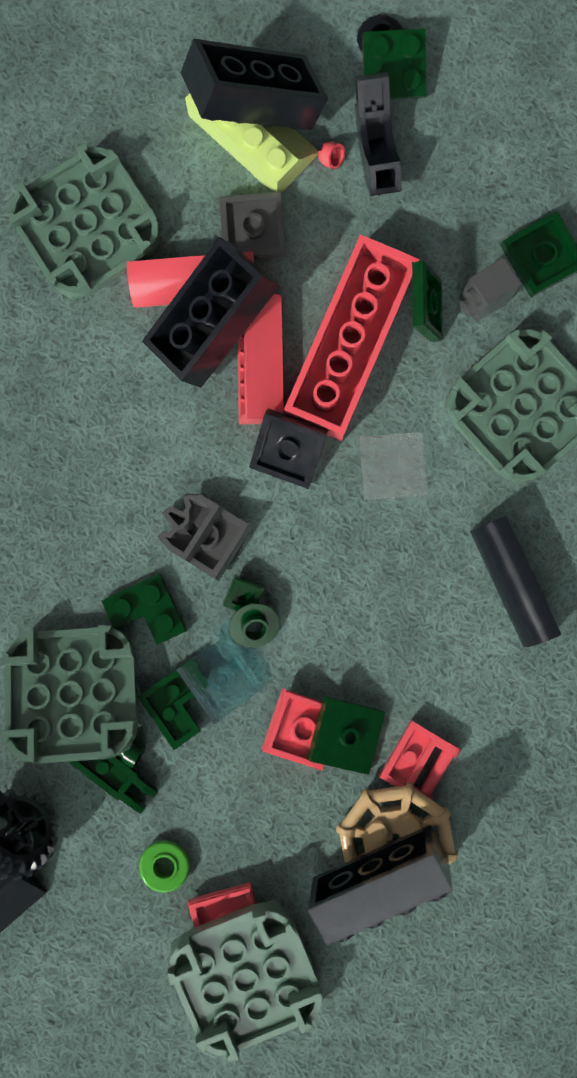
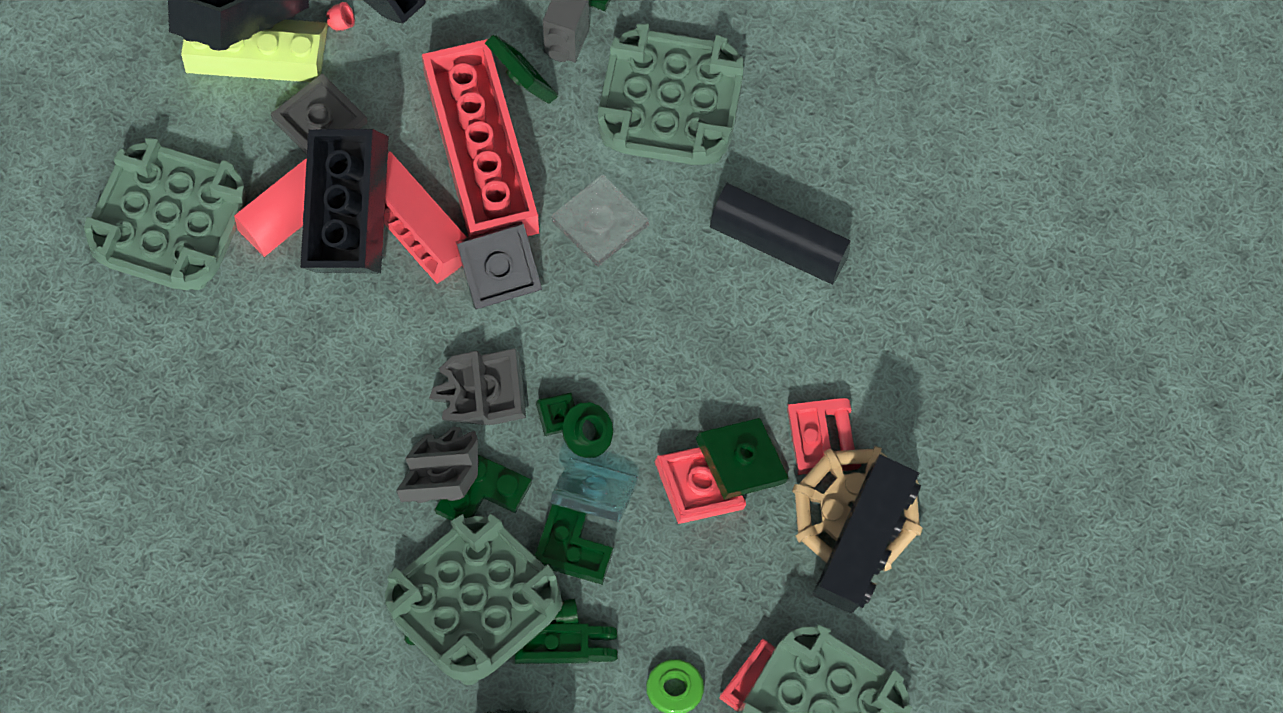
camera: 40 degrees left, 20 degrees down
(126, 575) = (441, 467): none -> dark grey plate

